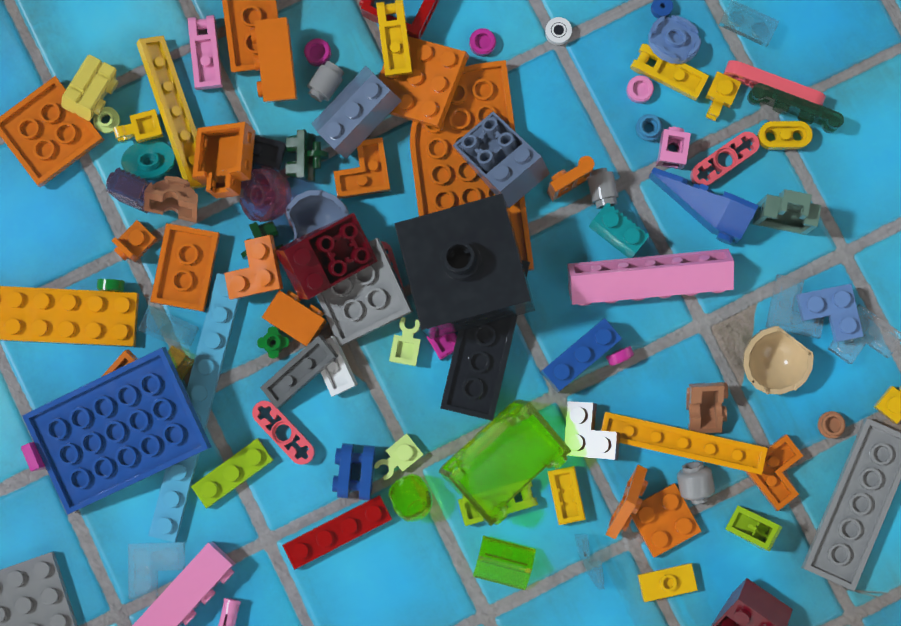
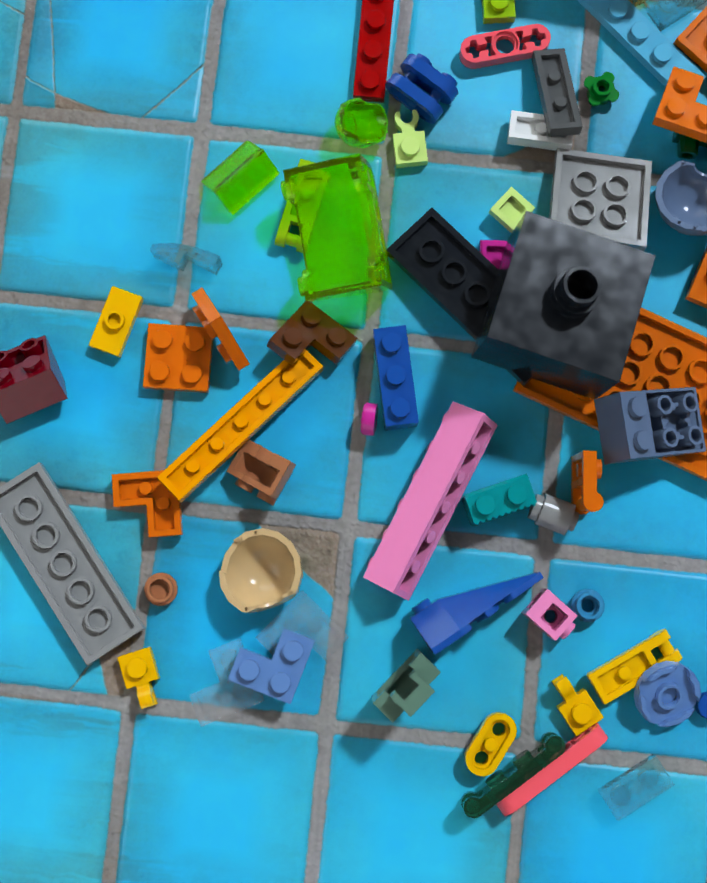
camera: 120 degrees right, 0 degrees up
(294, 318) = (614, 121): orange brick -> none
(326, 256) = (659, 181): dark red slope -> none
(566, 495) = (265, 276): yellow plate -> none
(640, 89) = (634, 623): bright pink tile -> none
(695, 482) = (193, 411): light grey head -> none
(736, 143) = (497, 688): coral beam -> none
(753, 528) = (110, 438): lime slope -> none

